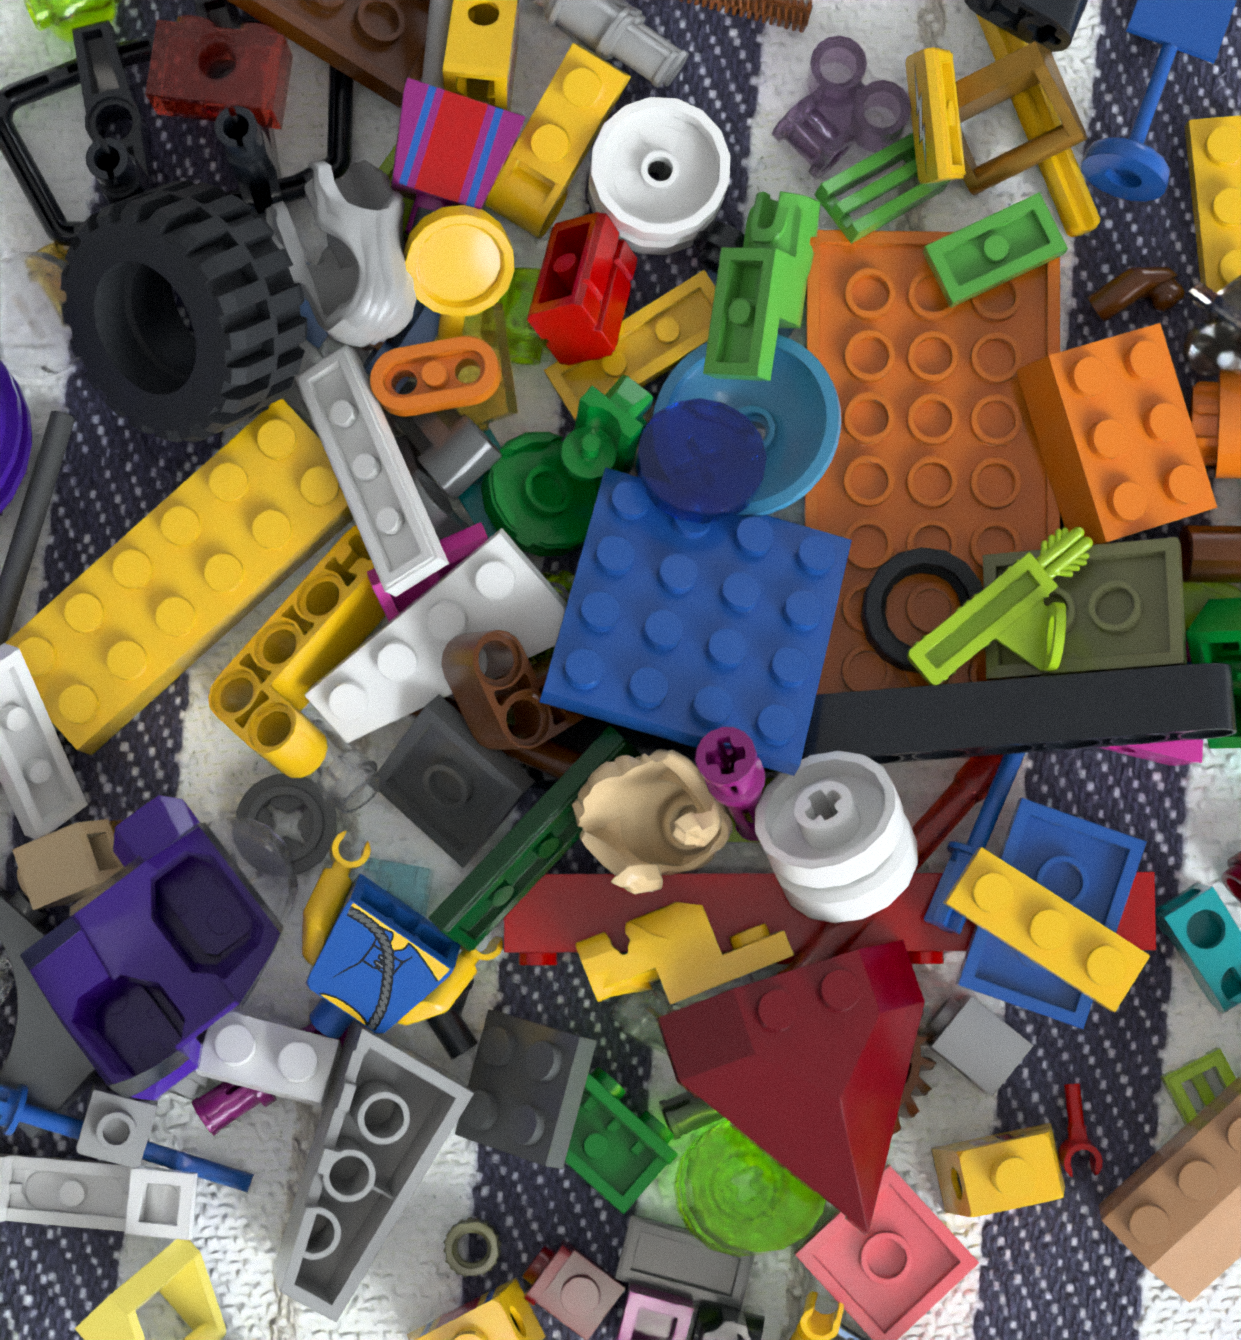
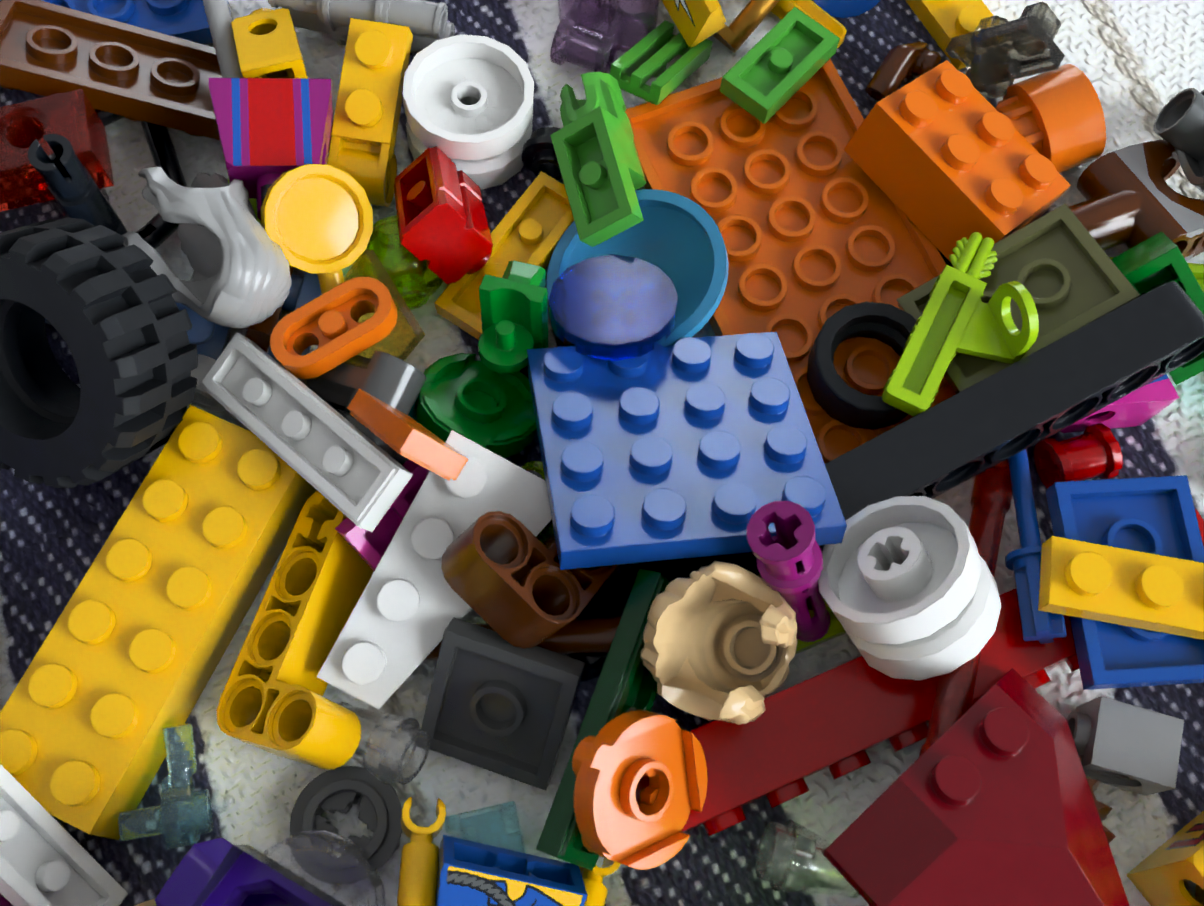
camera: 30 degrees left, 15 degrees down
(153, 757) = (182, 810): none -> clear light blue piece
(457, 522) = (406, 436): none -> orange tile
(513, 881) = (607, 780): none -> orange plate
(678, 950) = (807, 774): yellow plate -> none
(1085, 776) = (1079, 457): none -> red bush

